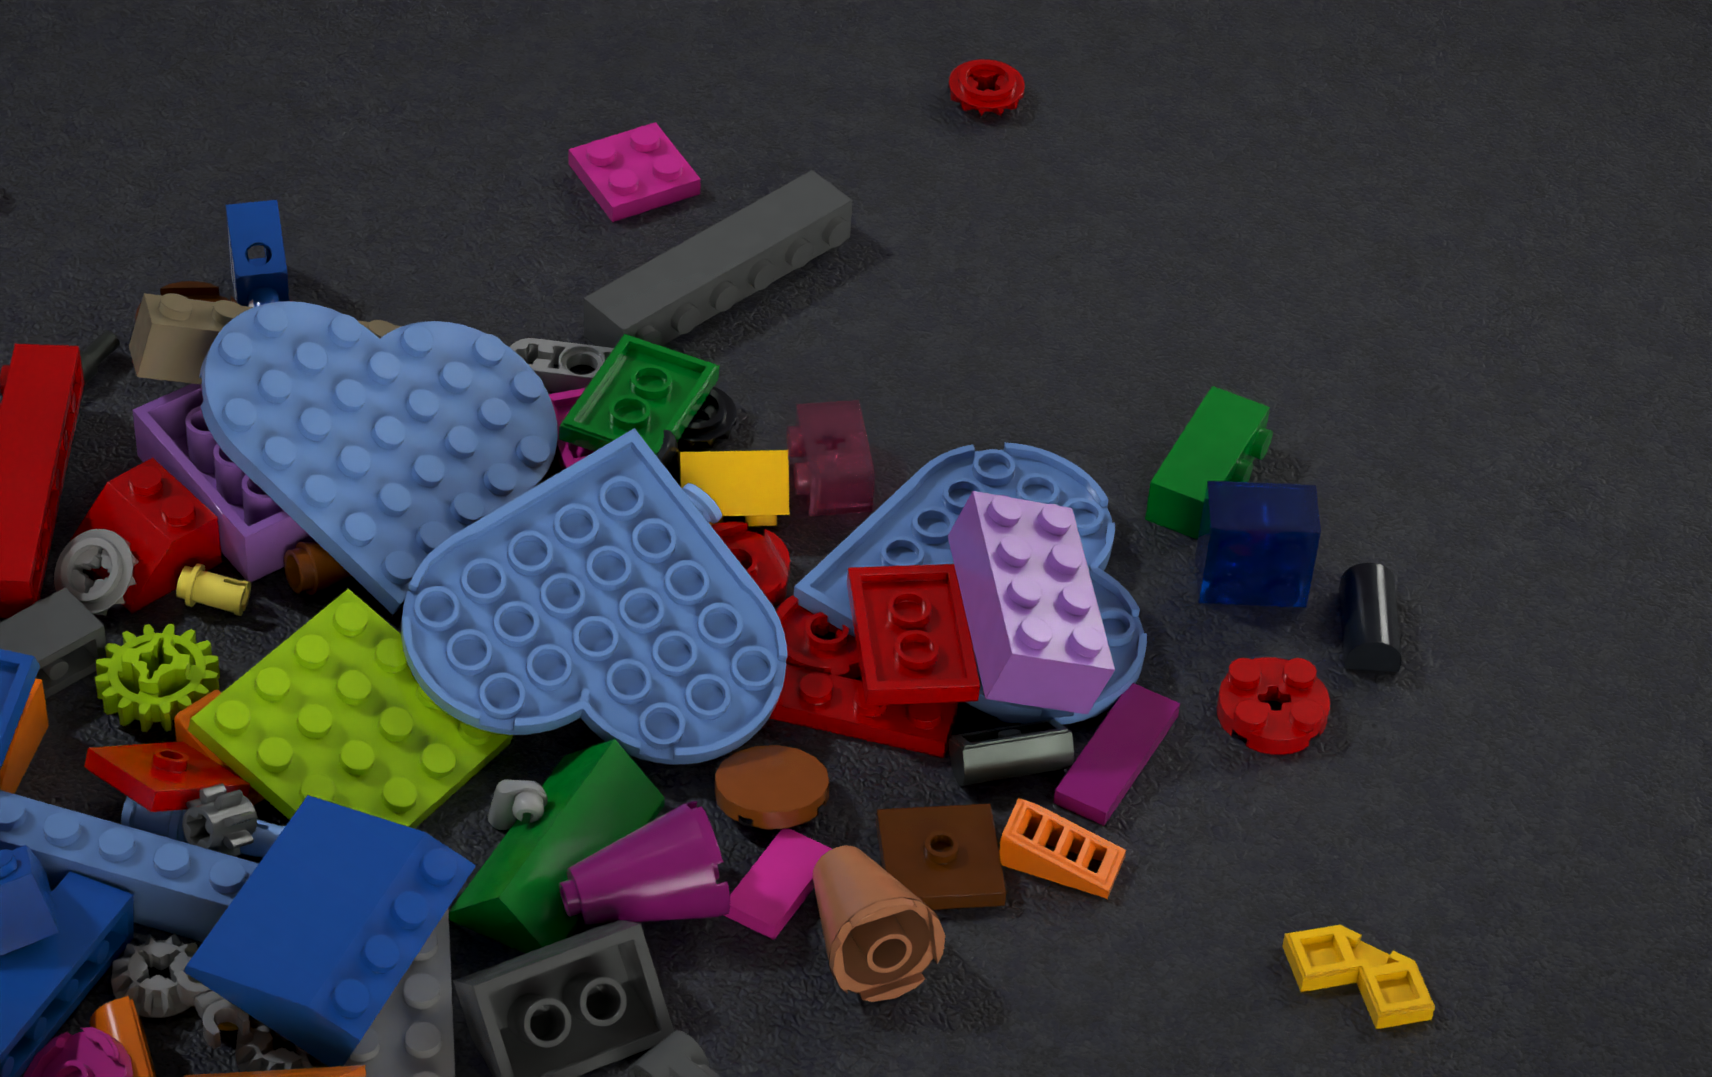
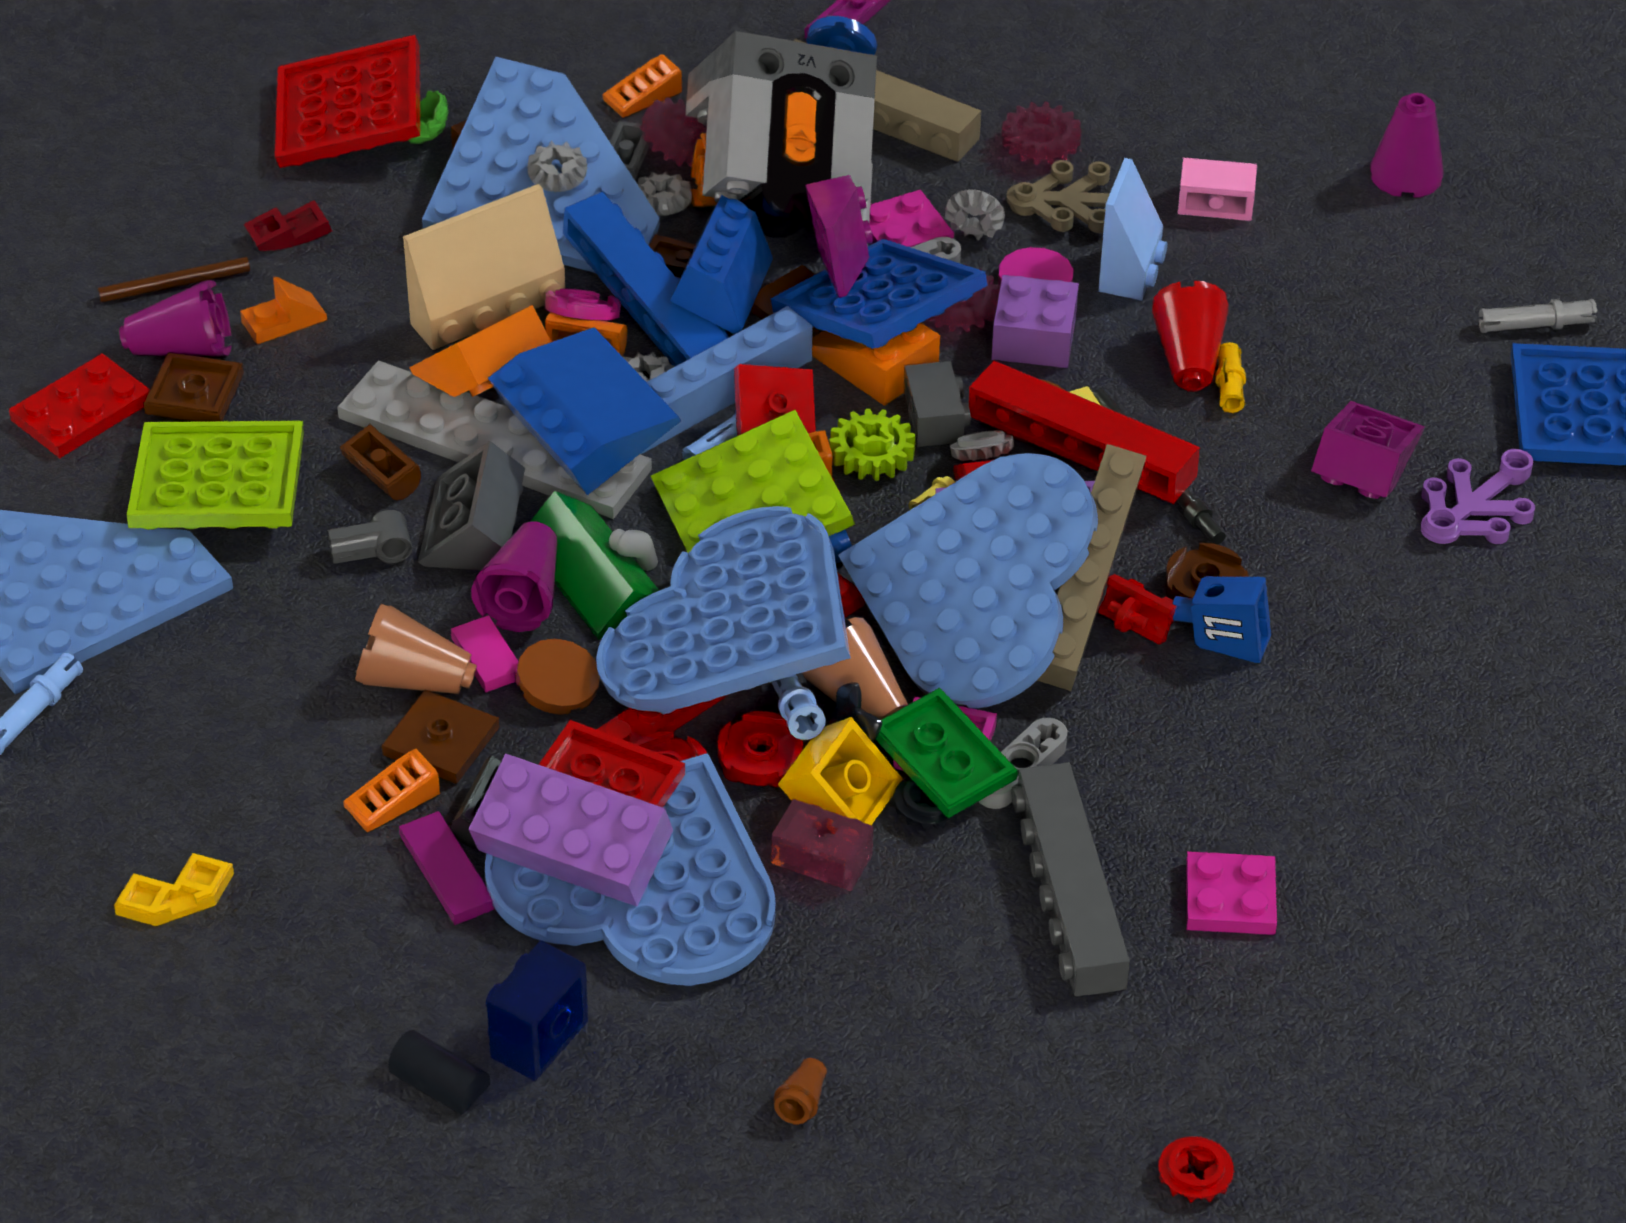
camera: 125 degrees right, 0 degrees up
(220, 820) = (711, 403): dark grey gear -> none
(1148, 350) = (800, 1094): none -> dark orange cone
(1214, 446) = (654, 1057): green brick -> none
(1275, 679) = (411, 953): red plate -> none

